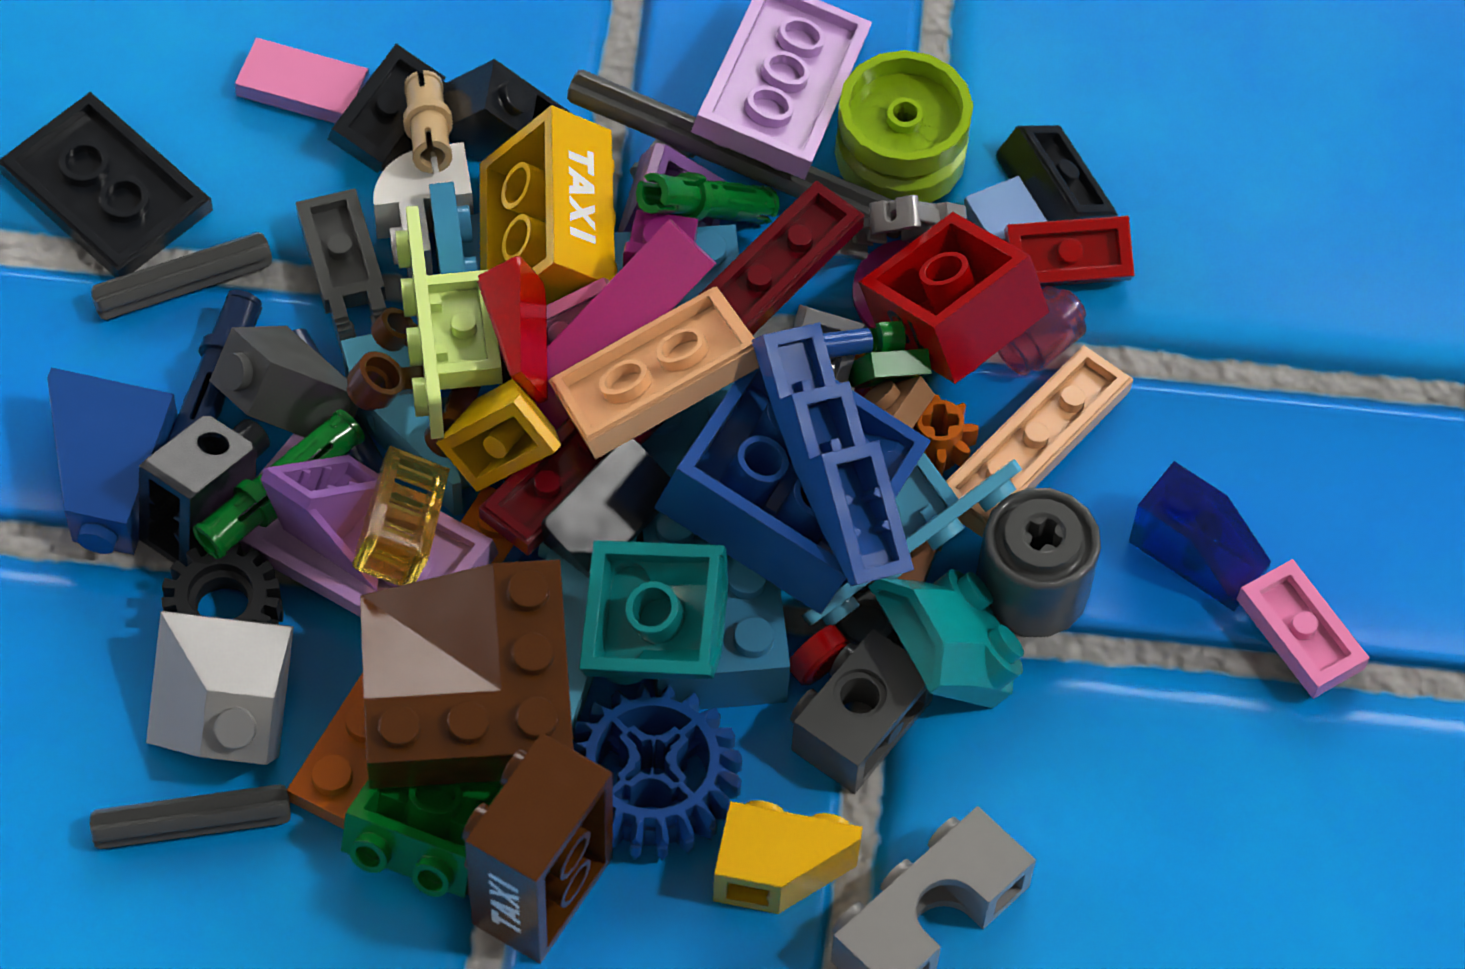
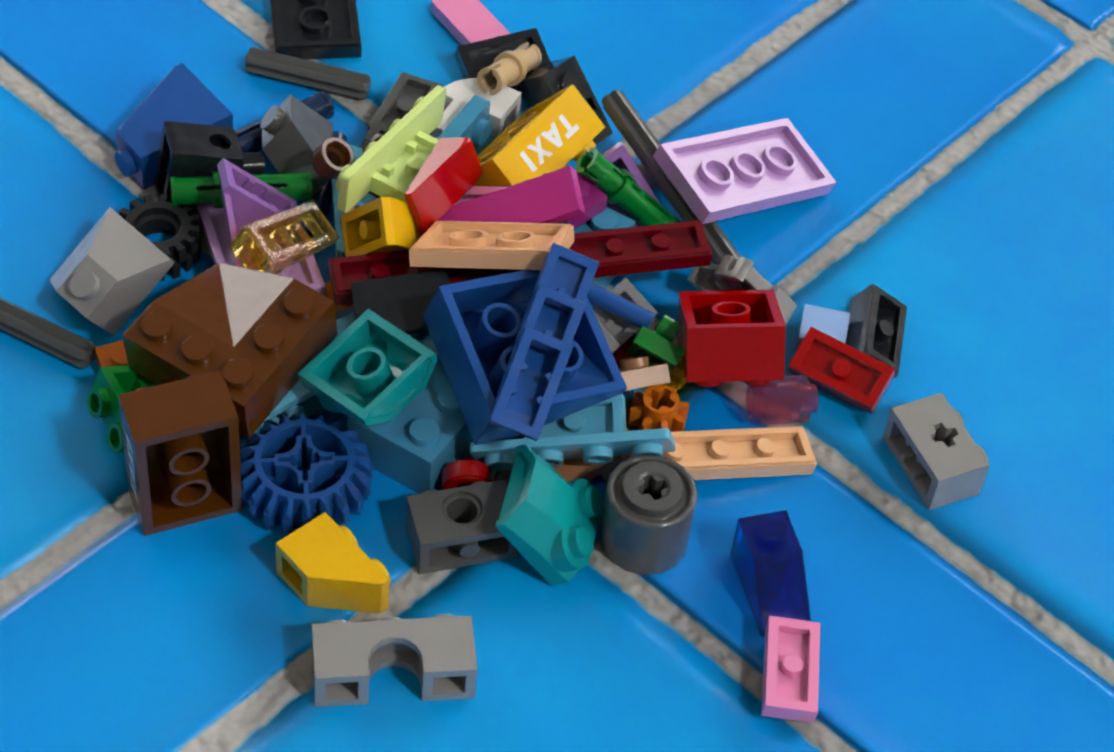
camera: 35 degrees right, 10 degrees down
(904, 126) = (797, 238): lime wheel -> none
(1235, 281) = (936, 451): none -> light grey brick

